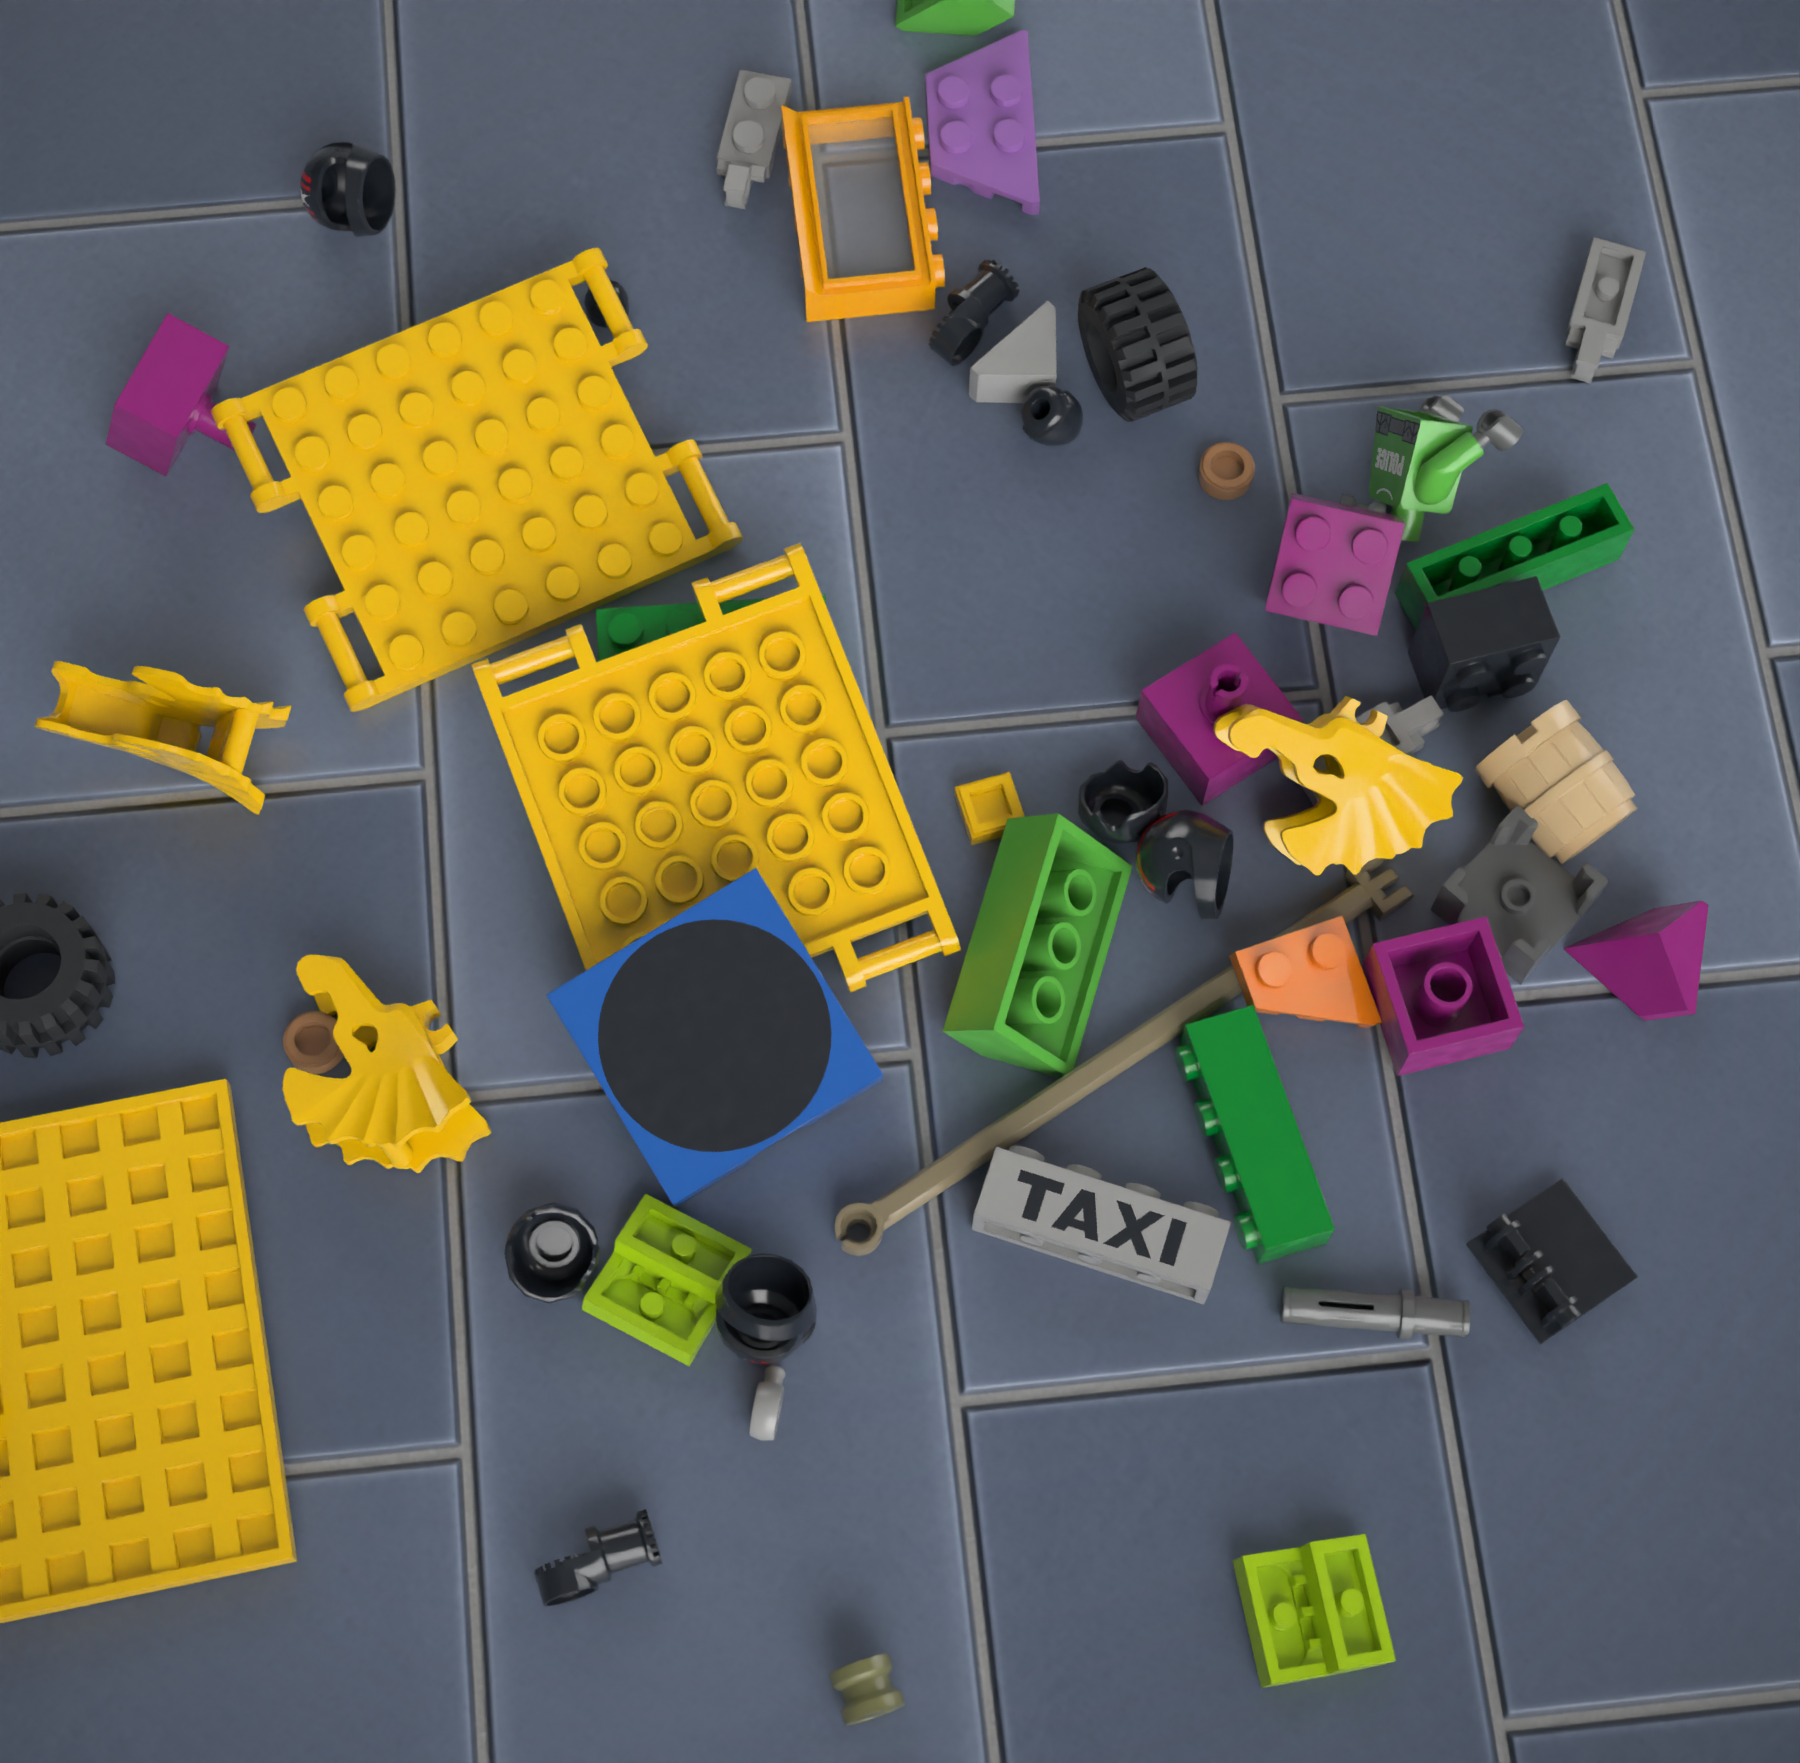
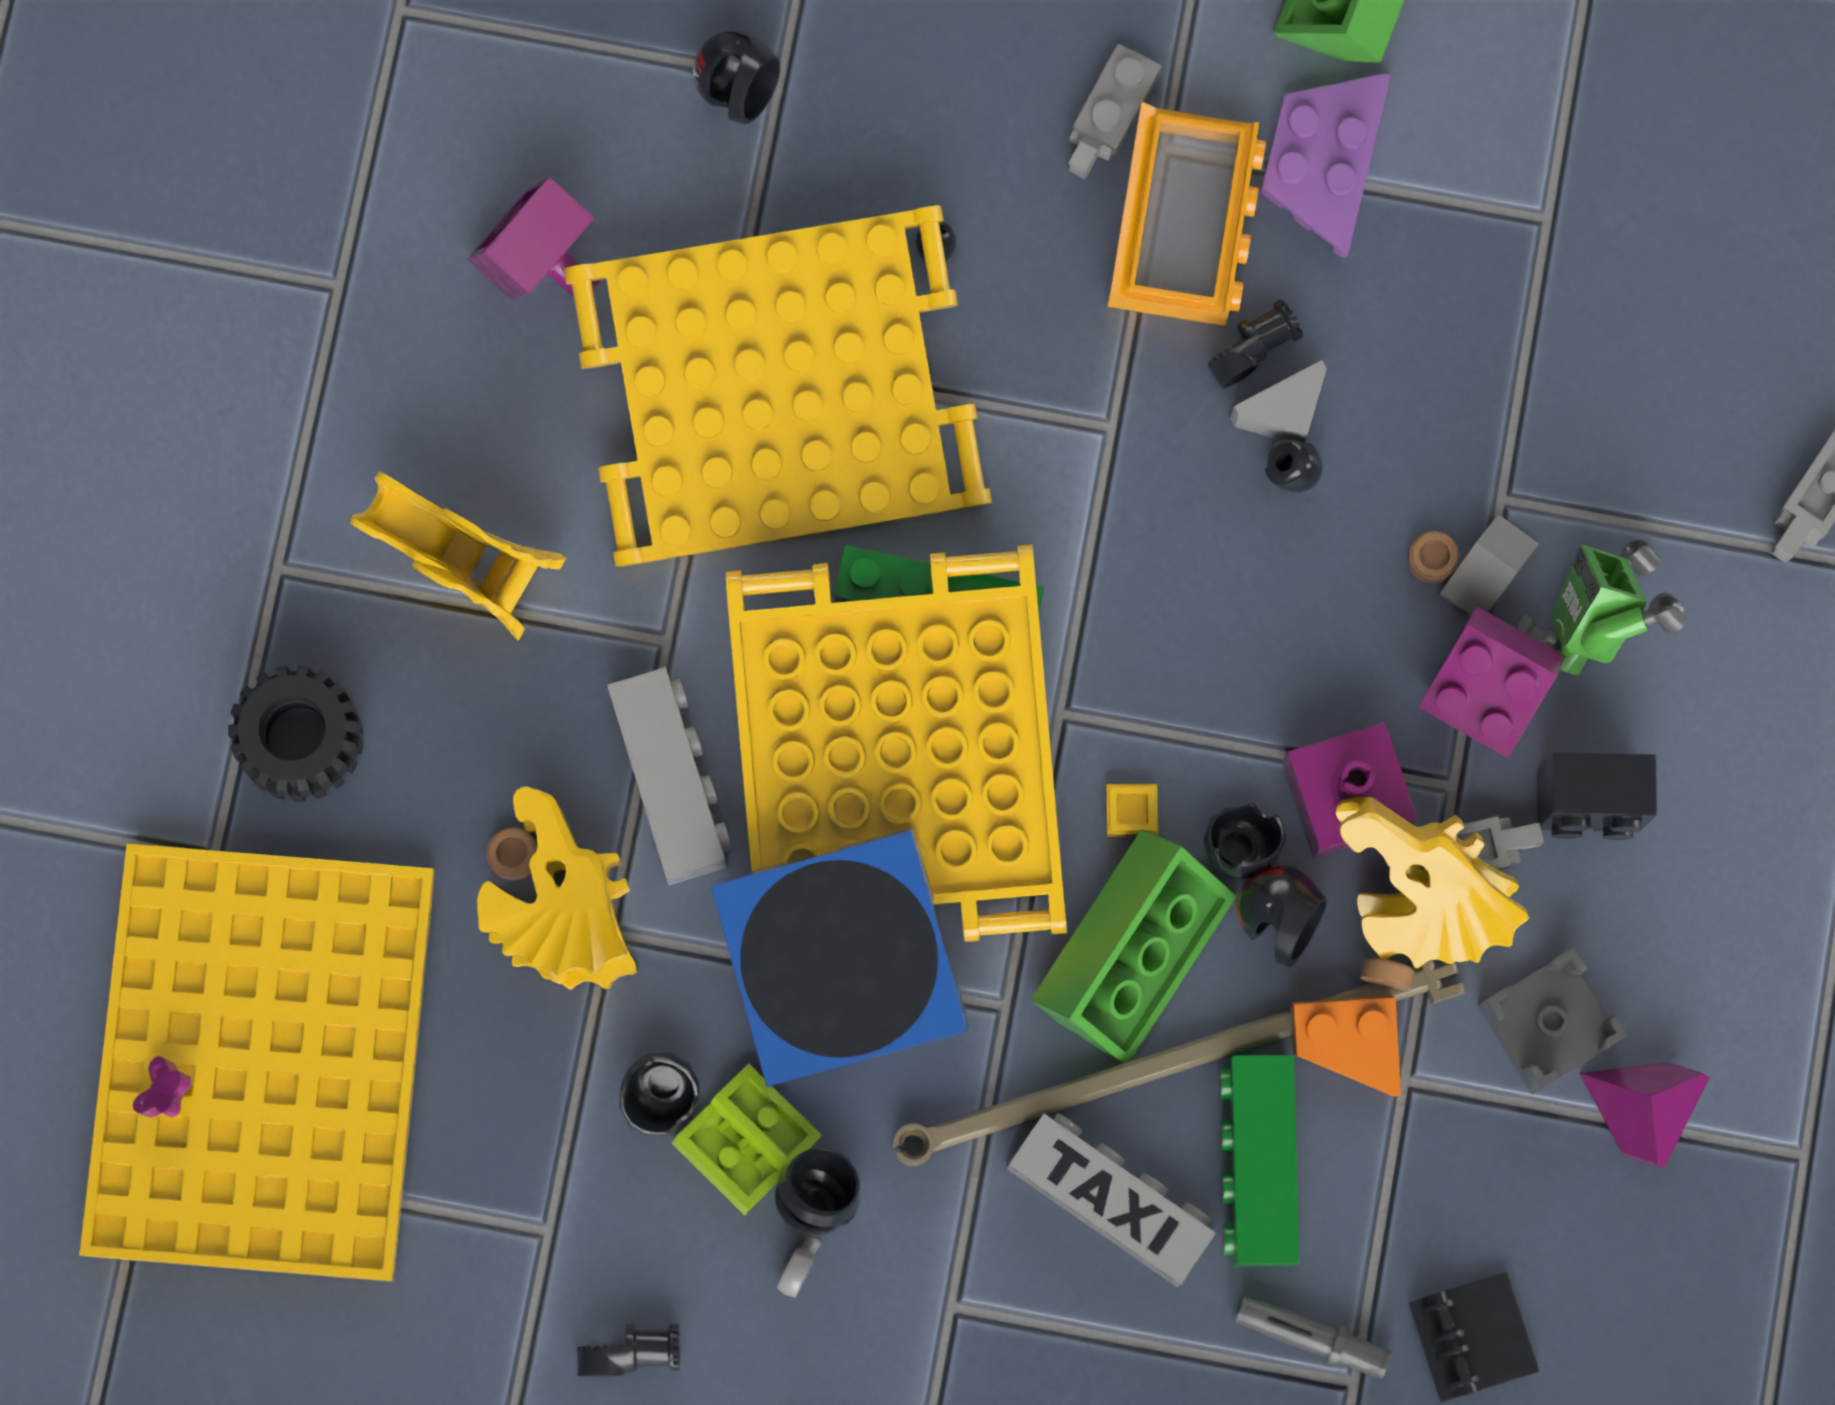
camera: 15 degrees right, 10 degrees up
(468, 908) = (668, 776): none -> light grey brick
(1137, 344) = (1386, 428): black tyre -> none
(1286, 465) = (1489, 567): none -> light grey slope
(1325, 891) = (1387, 973): none -> medium nougat tile
(1442, 996) = (1456, 1091): magenta brick -> none
(1547, 544) = (1655, 719): green brick -> none
(1560, 781) = (1620, 935): tan piece -> none

